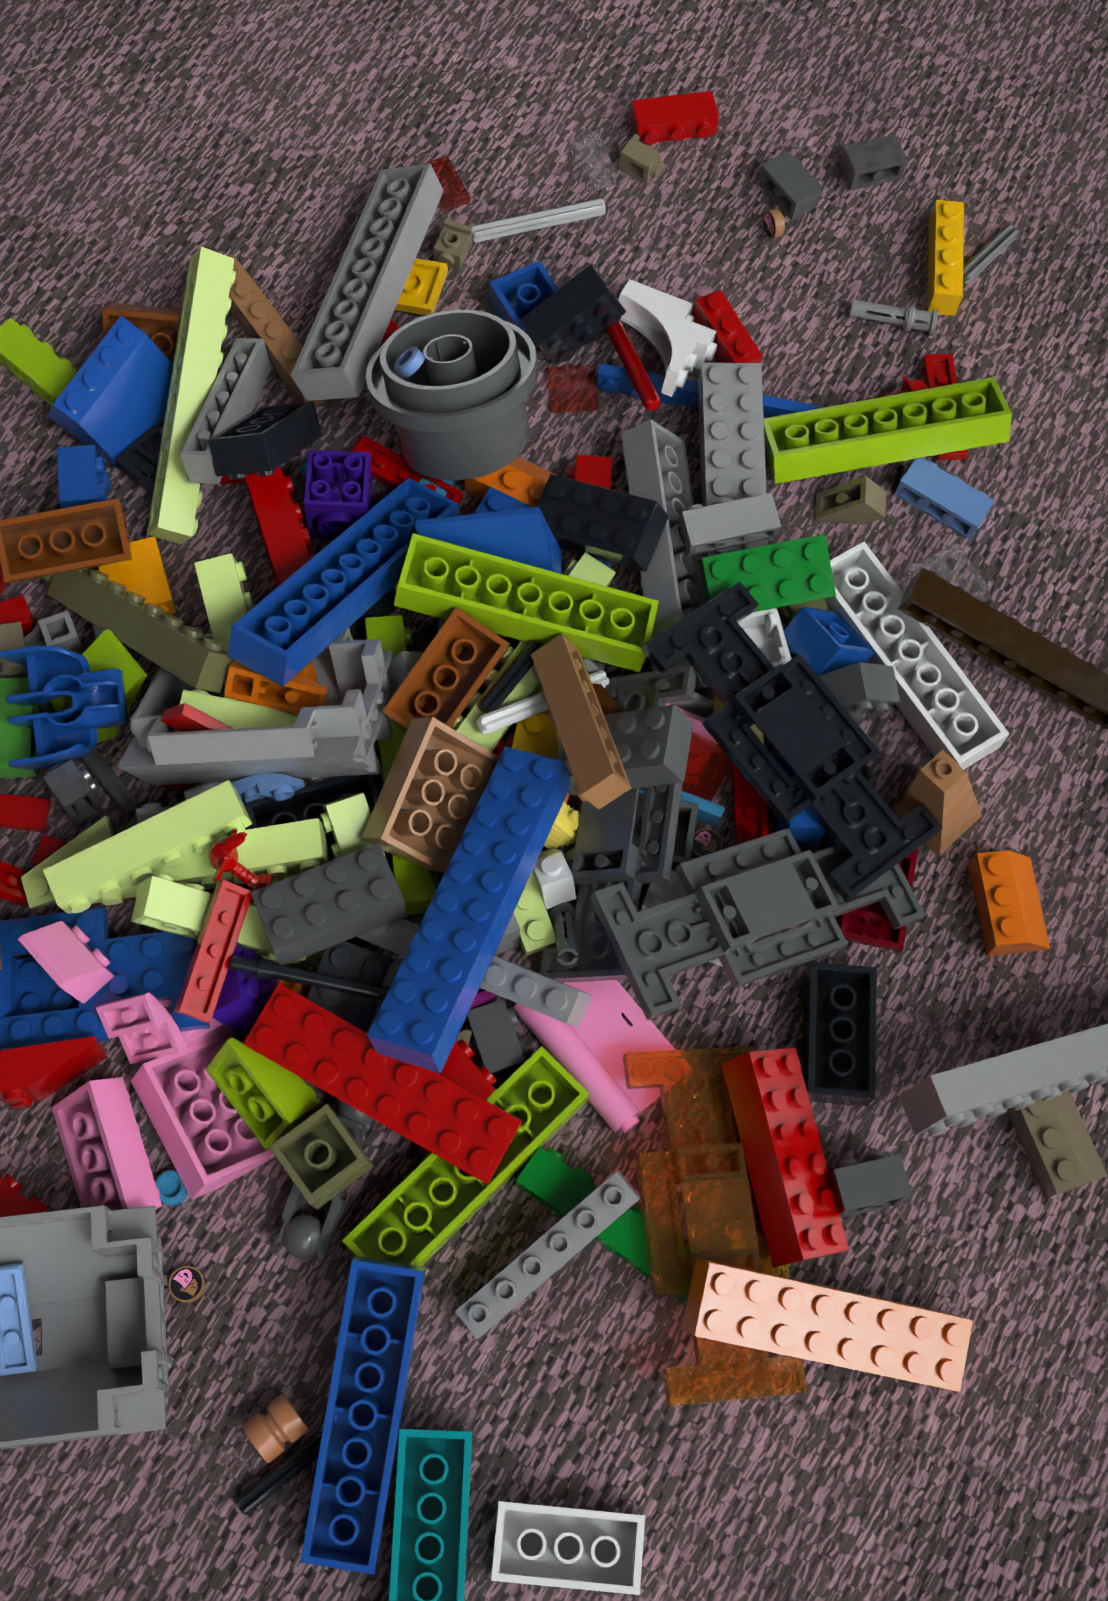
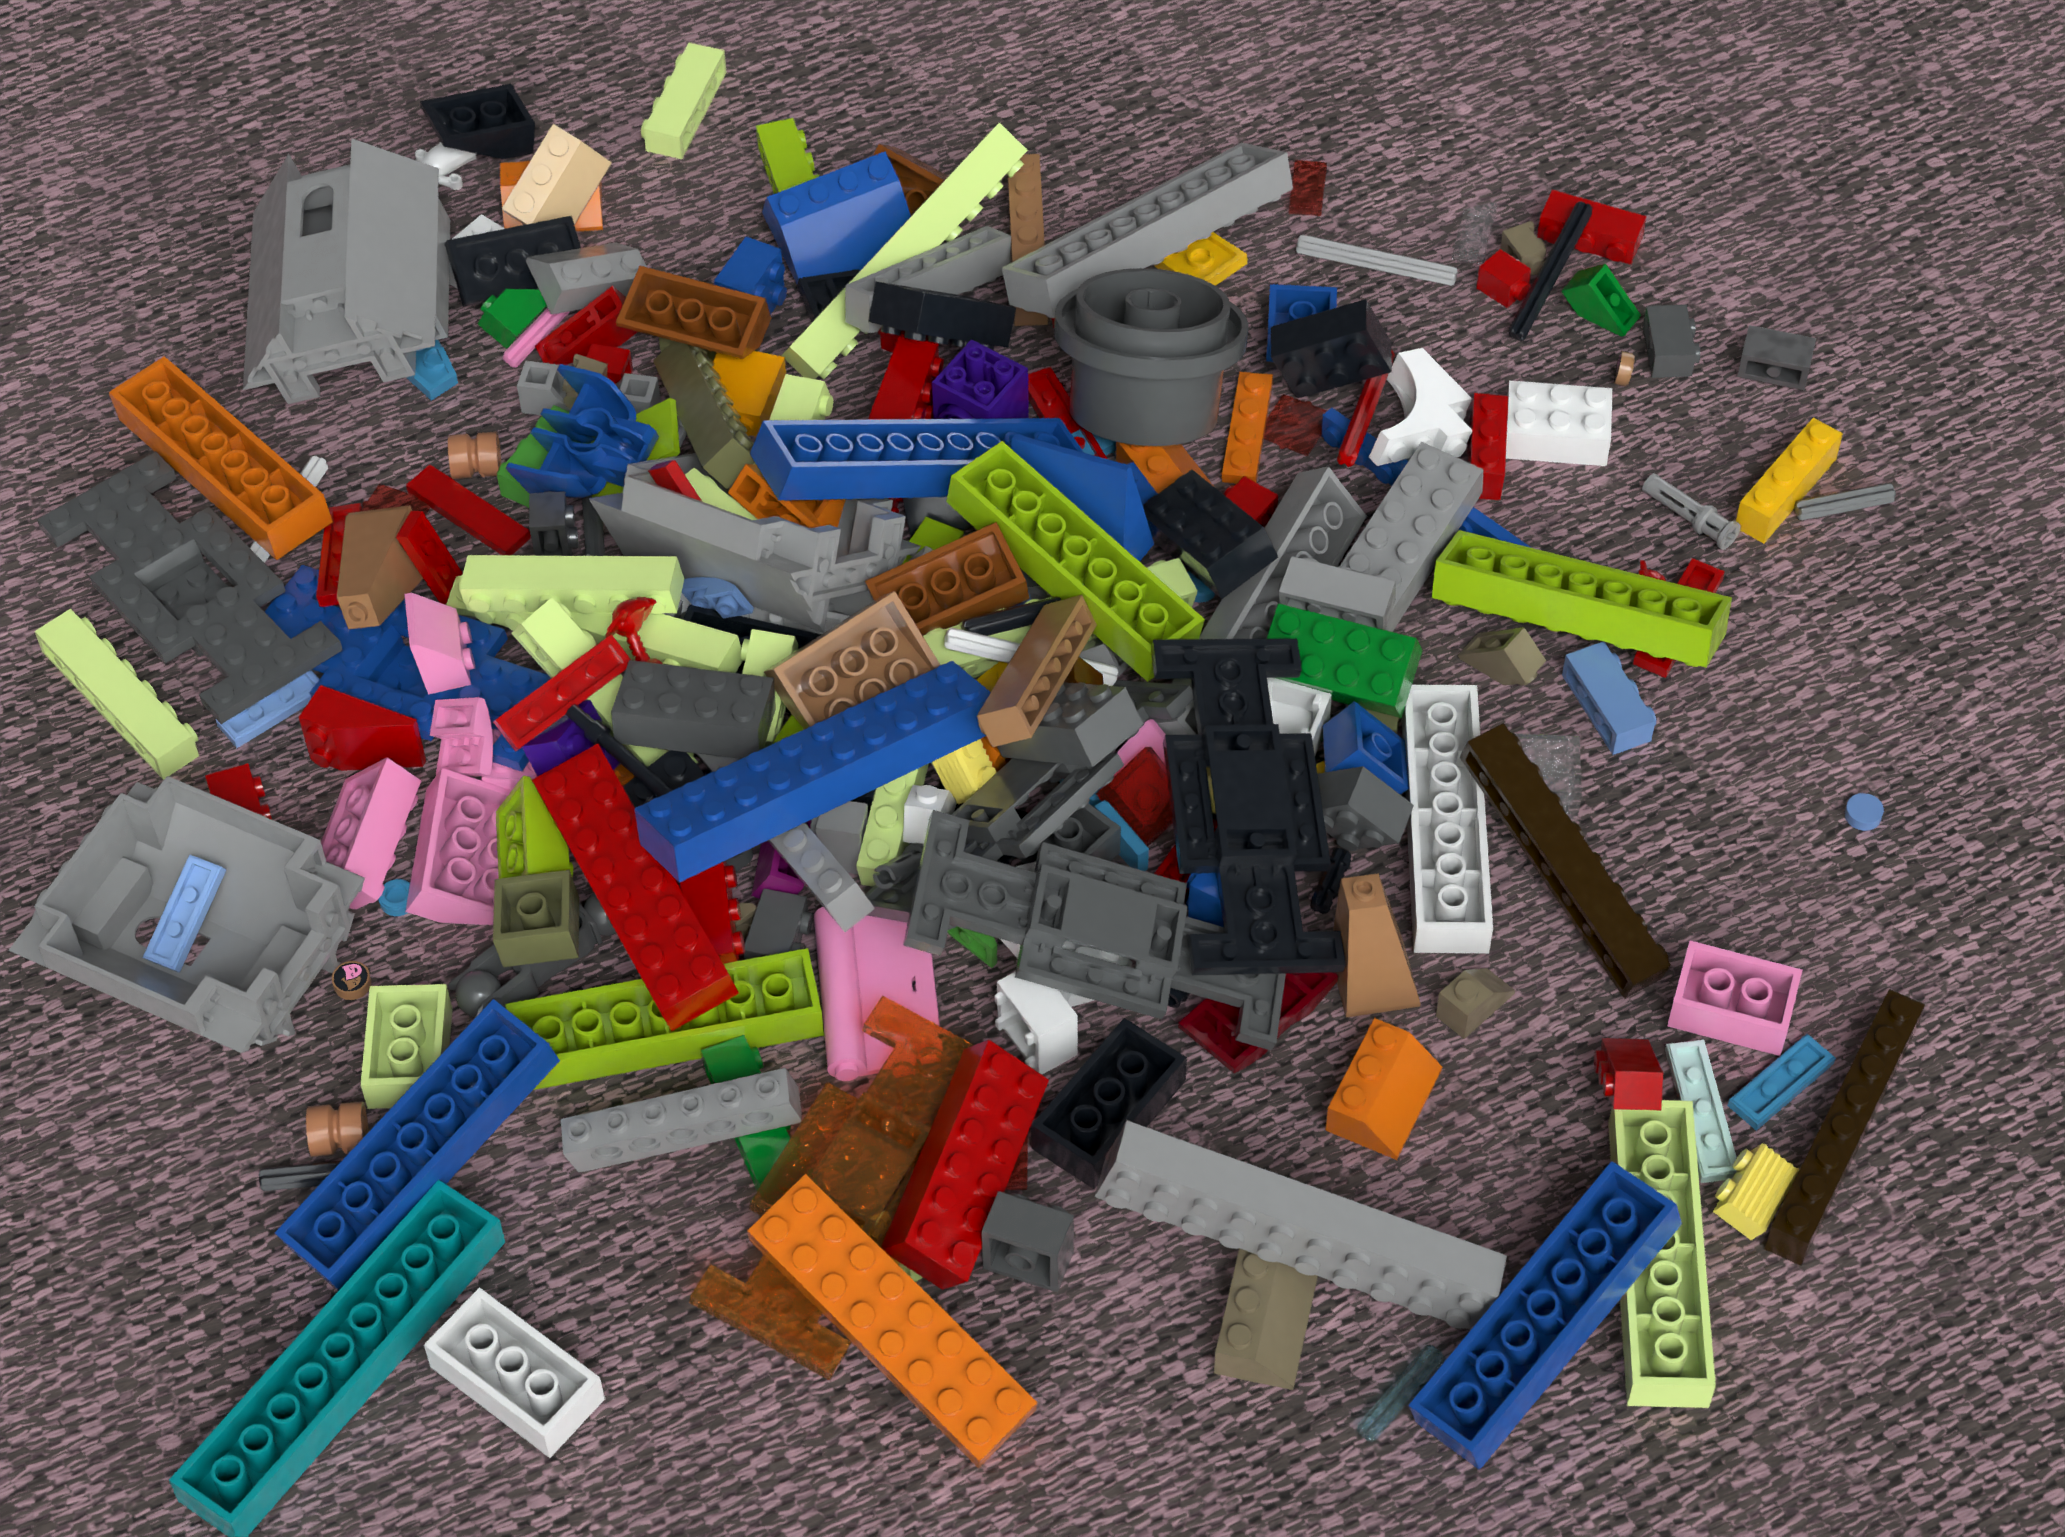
camera: 40 degrees right, 15 degrees down
(280, 1320) = (402, 1038): none -> yellowish green brick
(409, 362) = (1107, 294): medium blue tile -> none
(453, 244) = (1269, 243): dark tan brick -> none
(550, 424) = (1247, 427): none -> orange plate
(643, 191) = (1504, 278): none -> red brick
(674, 169) = (1550, 271): none -> black axle
(720, 174) = (1601, 299): none -> green slope
(745, 1006) = (1037, 1022): none -> white container
(766, 289) = (1559, 423): none -> white brick
(1019, 793) = (1471, 1000): none -> dark tan slope

